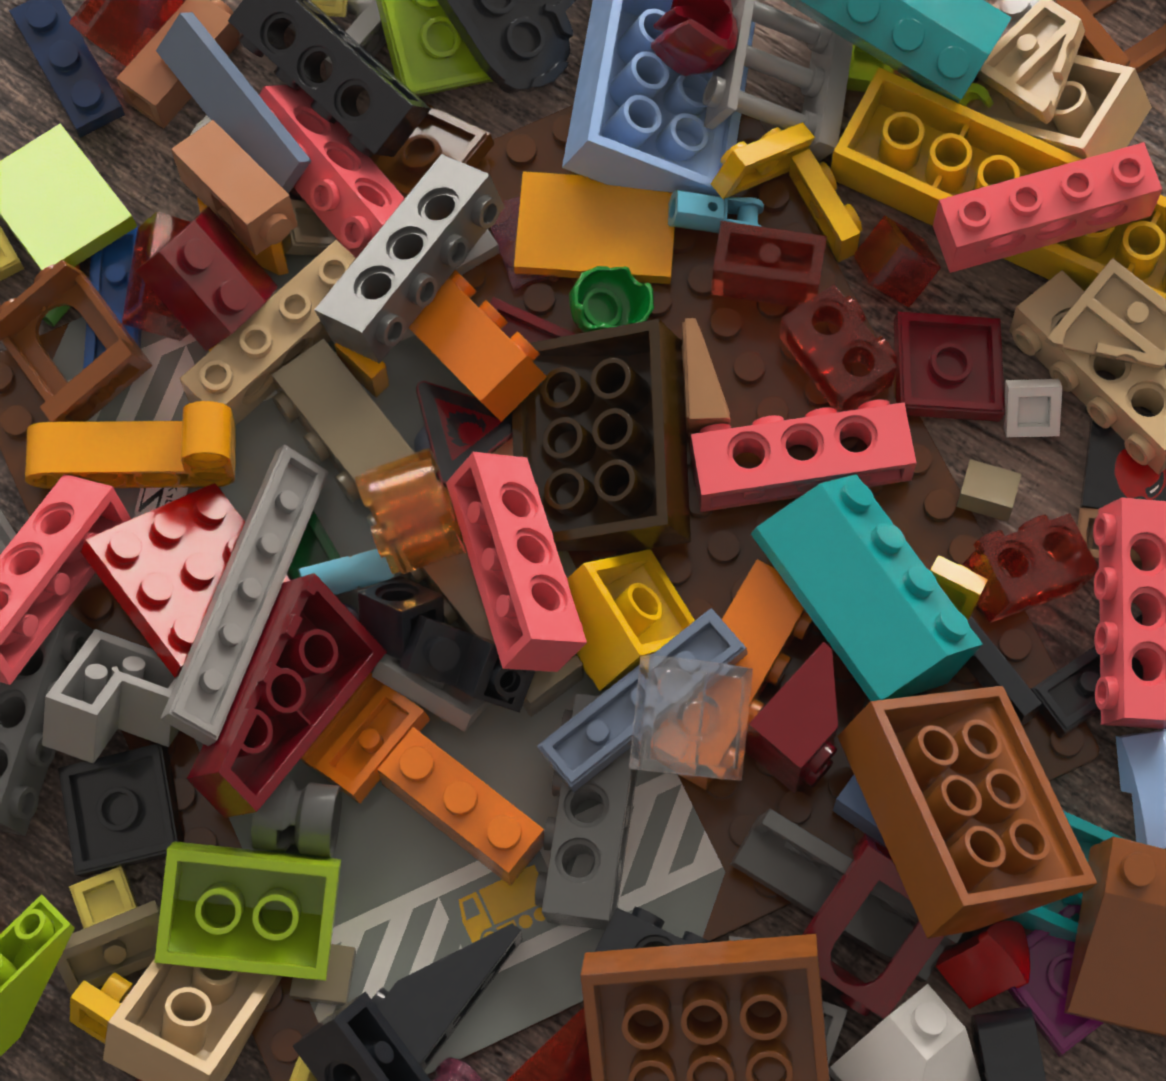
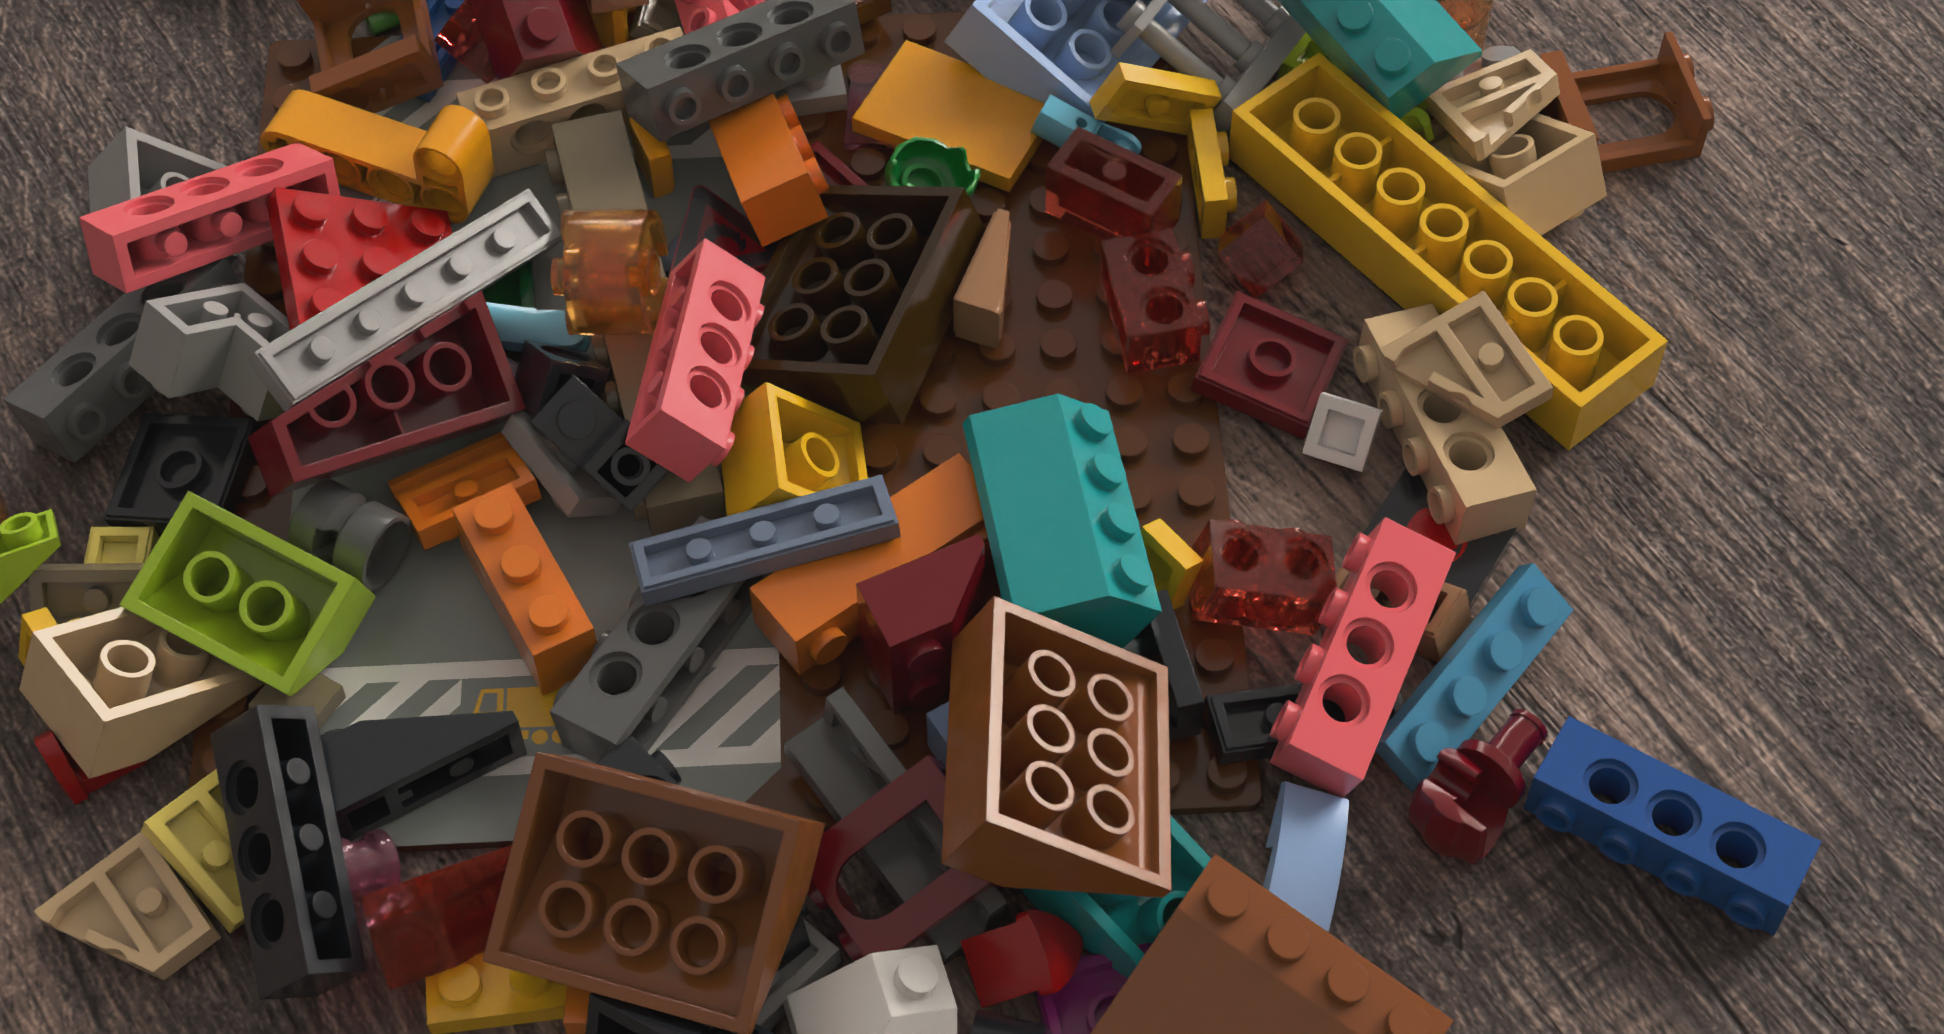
camera: 20 degrees right, 15 degrees down
(690, 717) = (799, 560): clear slope -> none
(781, 477) = (970, 382): coral brick -> none
(989, 490) = (1256, 495): dark tan tile -> none
(1046, 207) = (1433, 220): coral brick -> none

